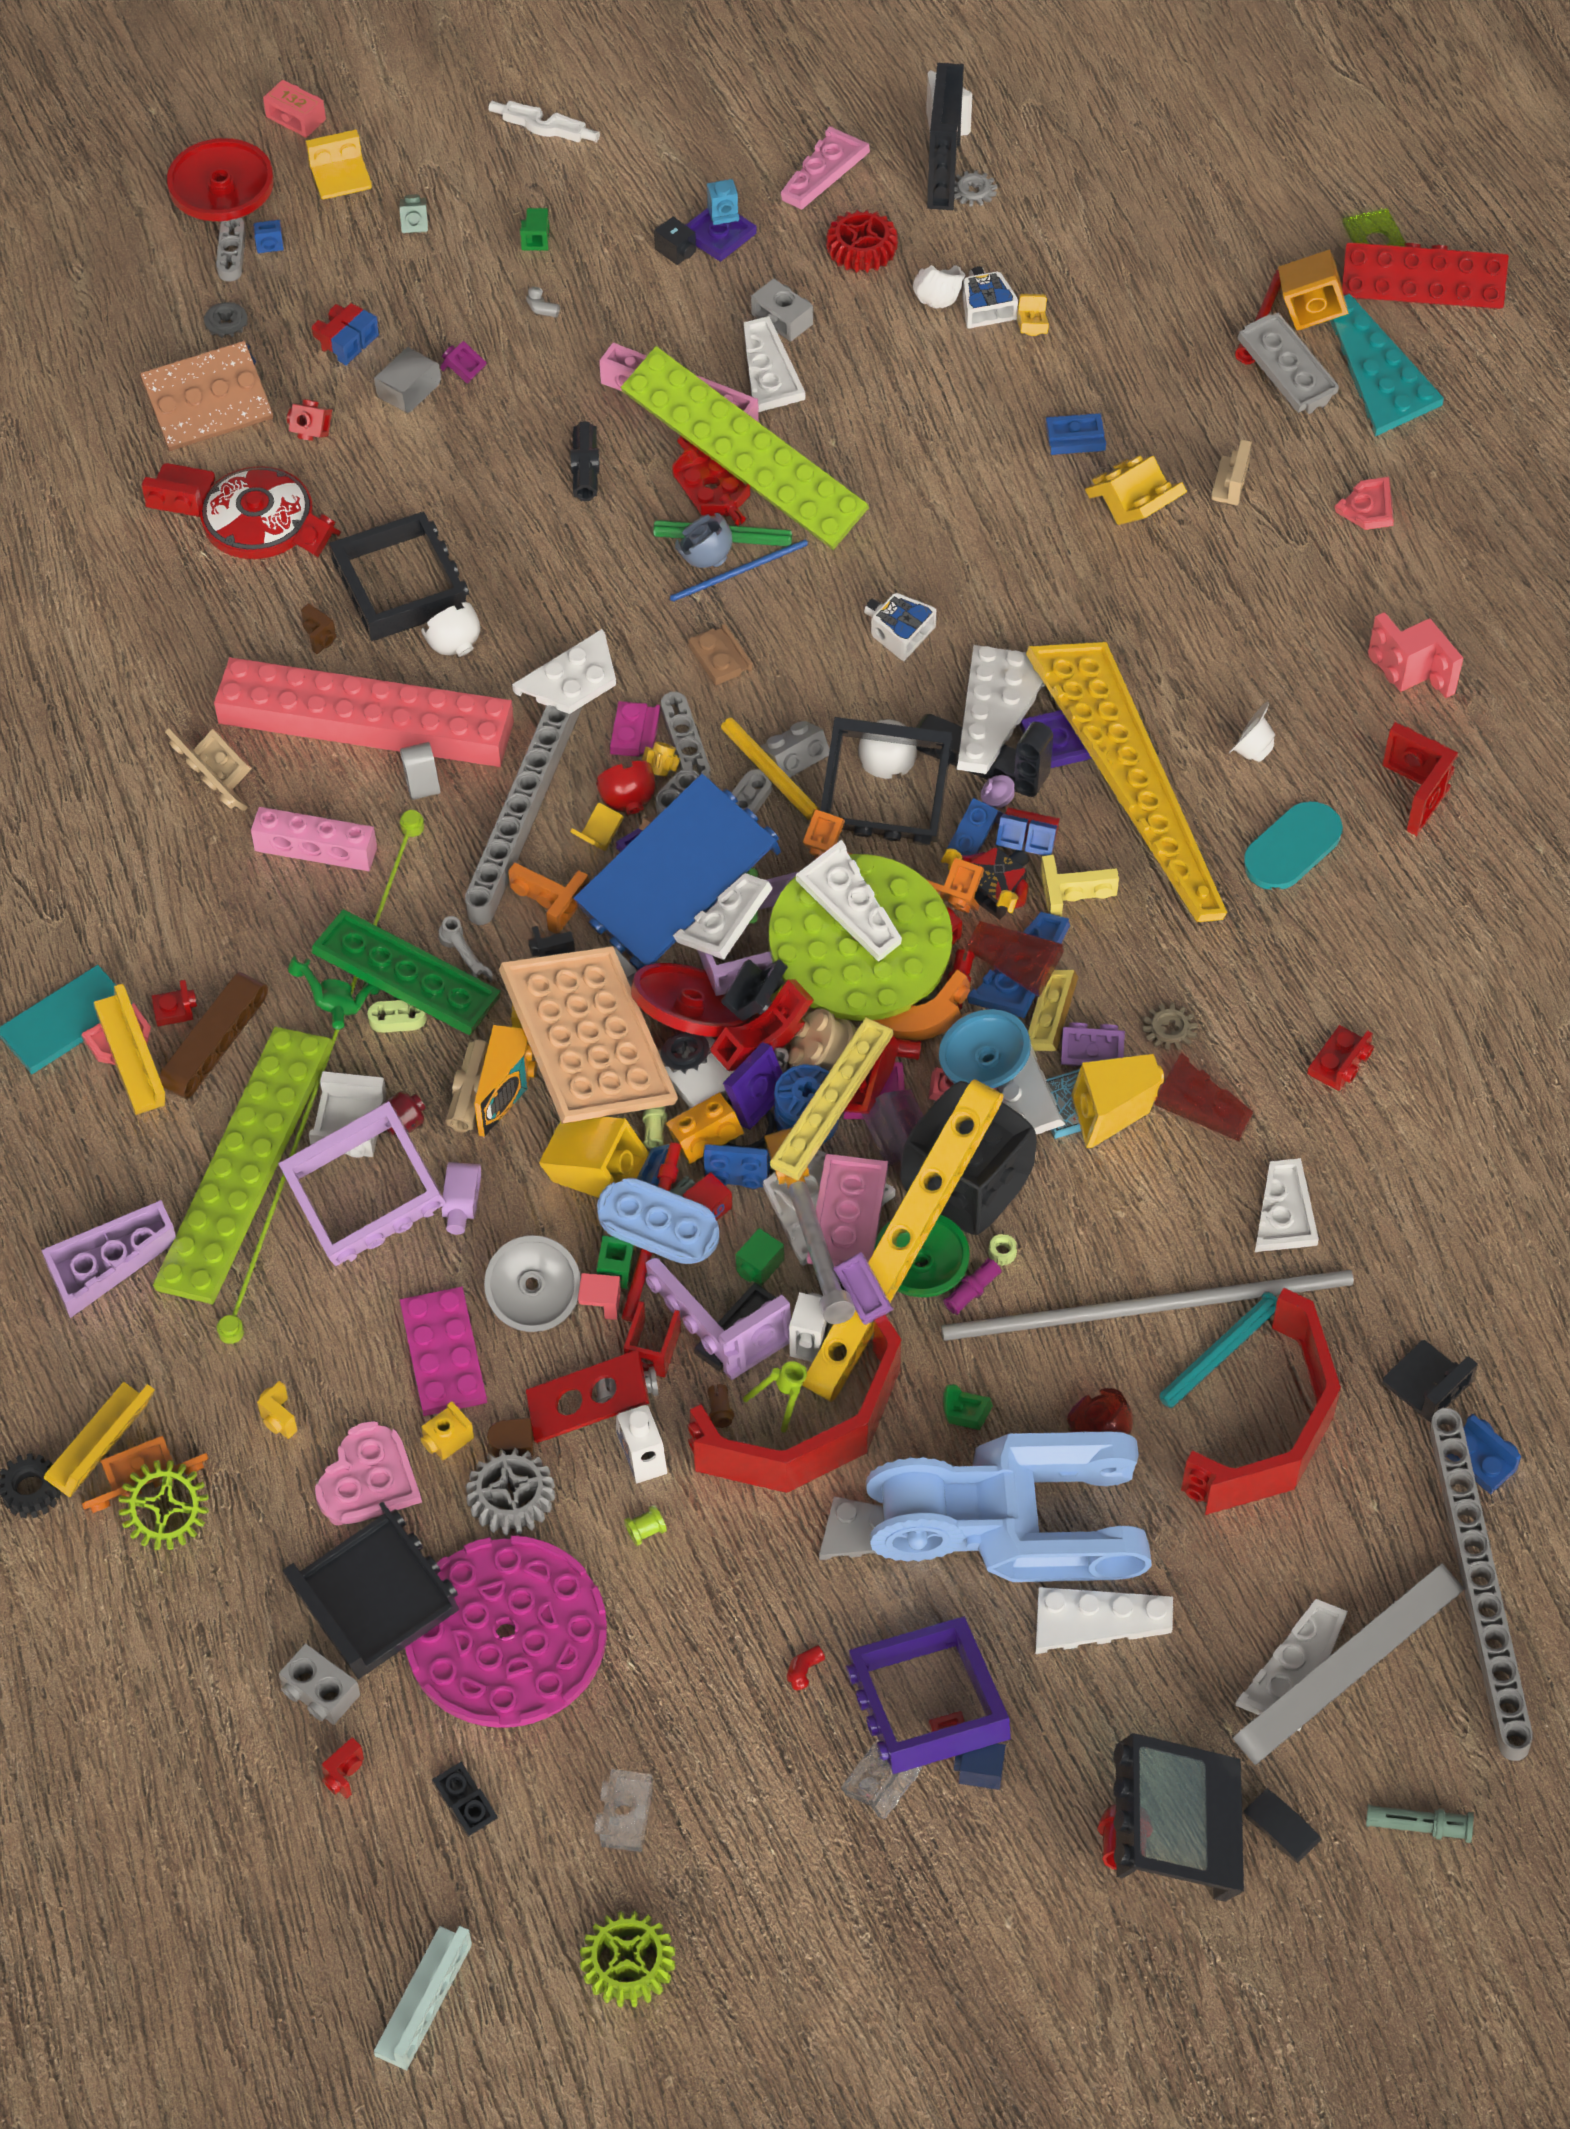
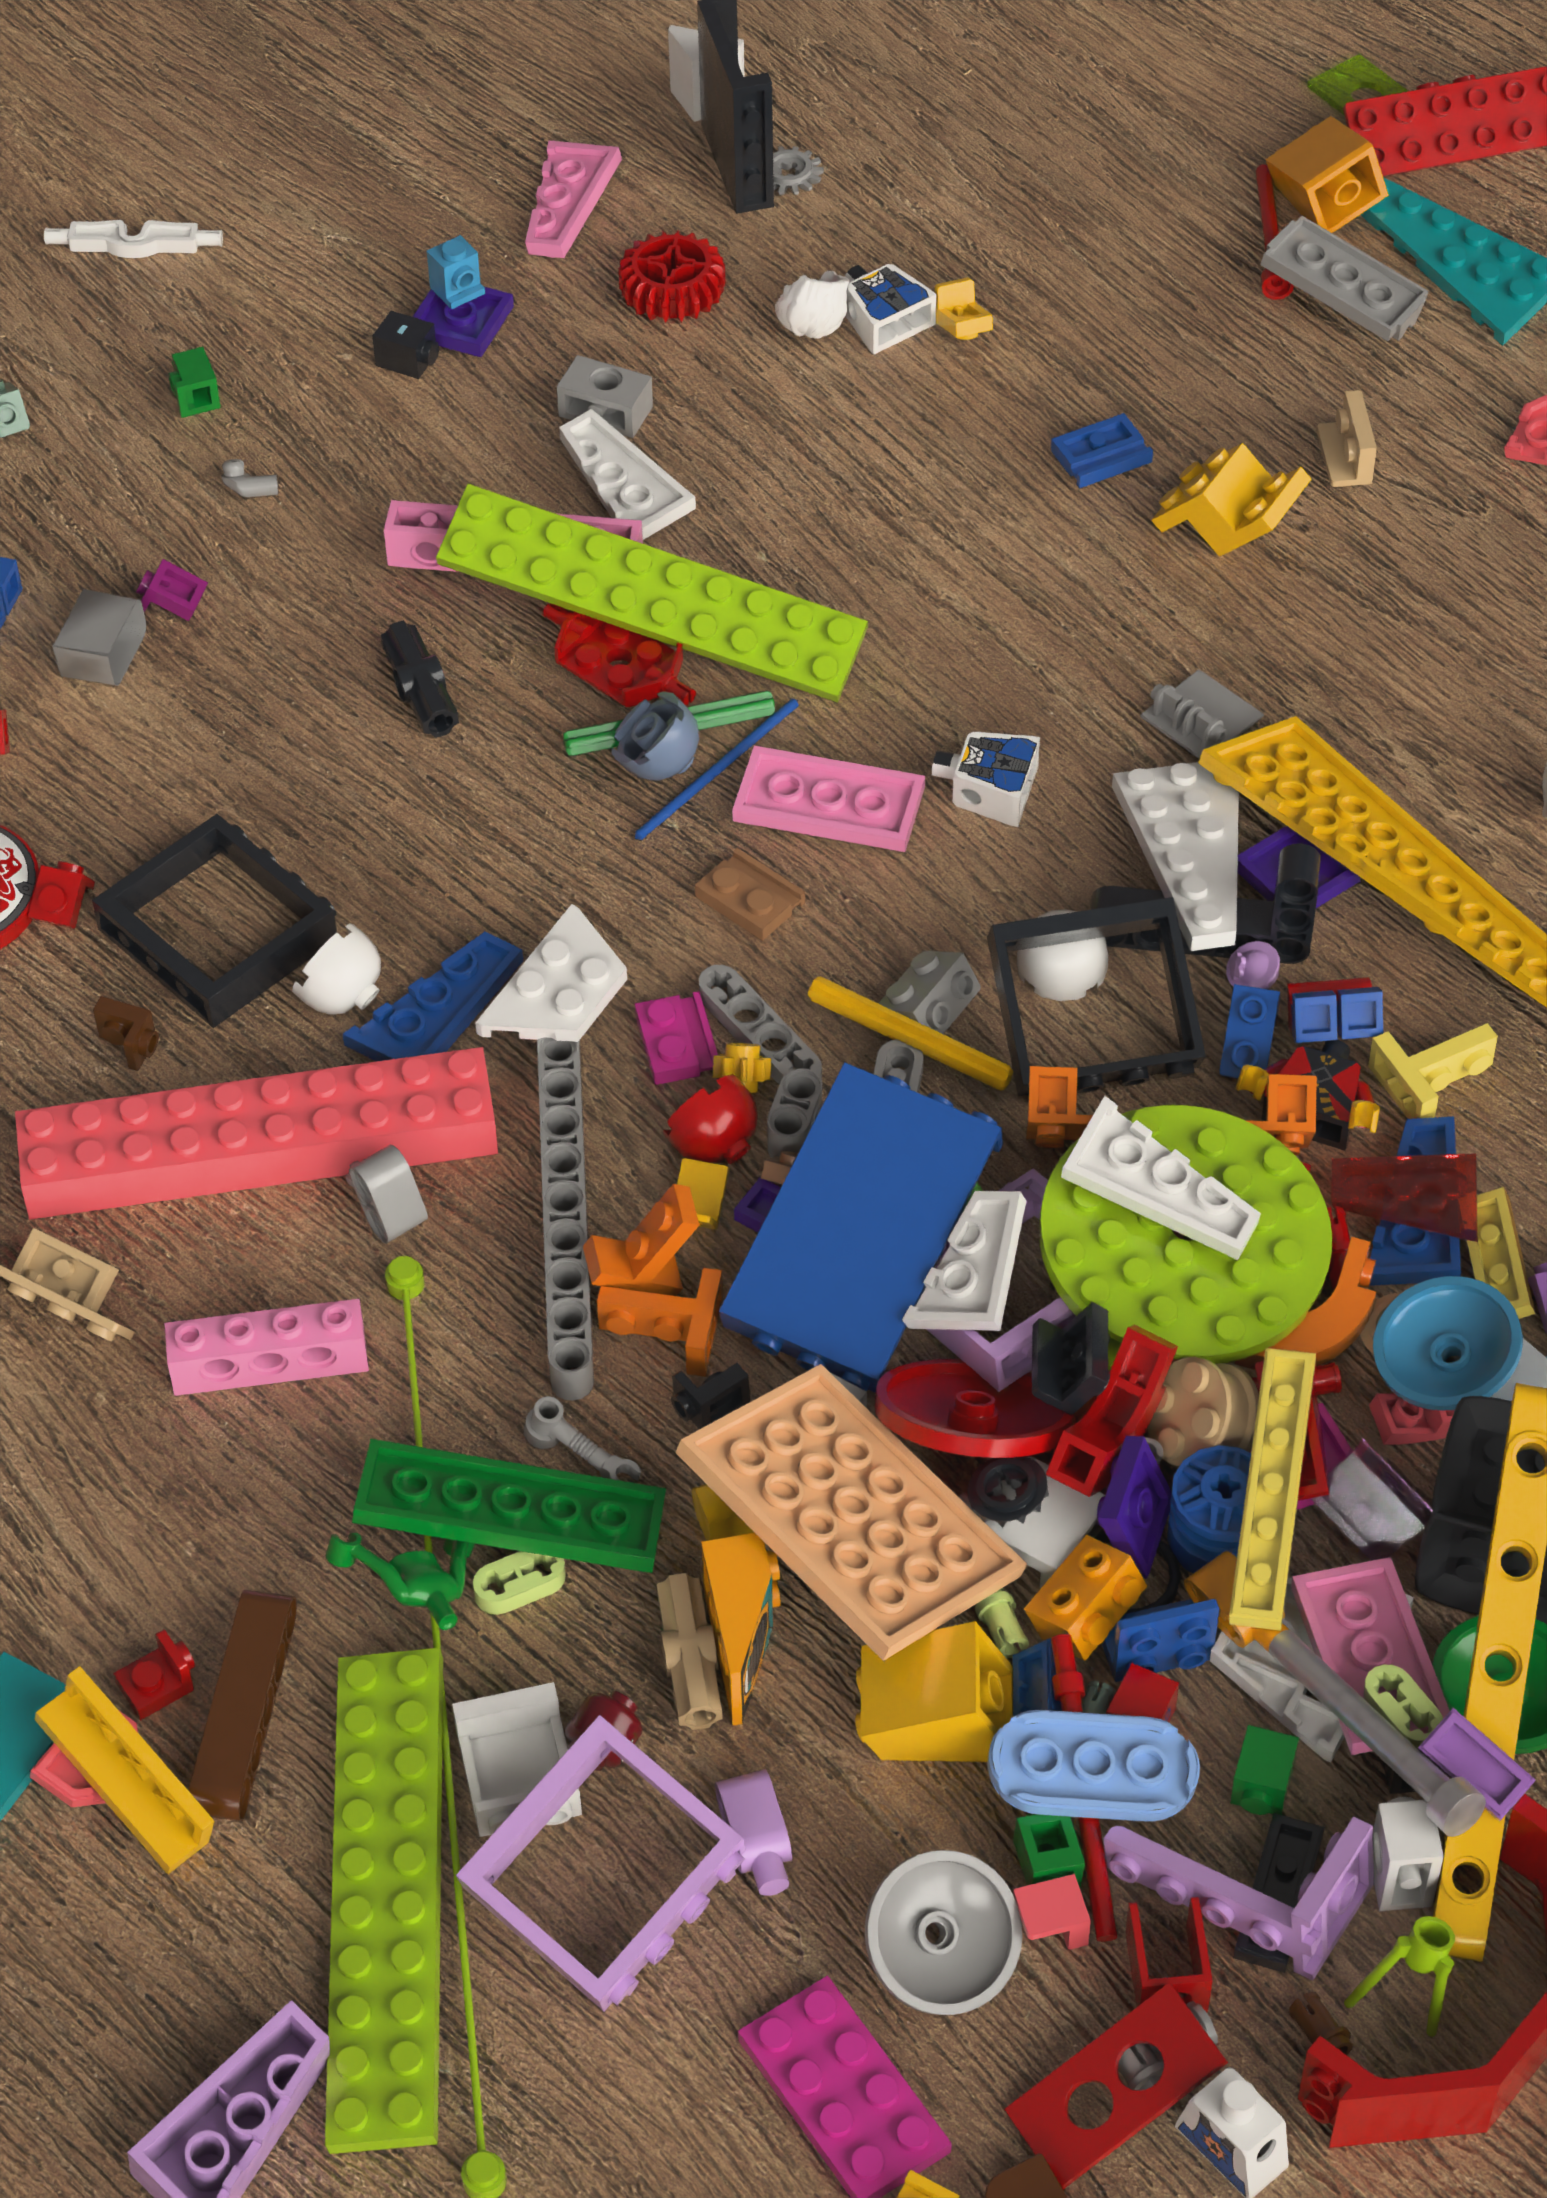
camera: 20 degrees left, 5 degrees down
(503, 667) = (438, 1006): none -> blue wing
(549, 853) = (648, 1254): none -> orange bracket
(795, 609) = (829, 798): none -> bright pink plate
(838, 1247) = (1409, 1705): none -> yellowish green beam
(1050, 622) = (1199, 713): none -> light grey hinge

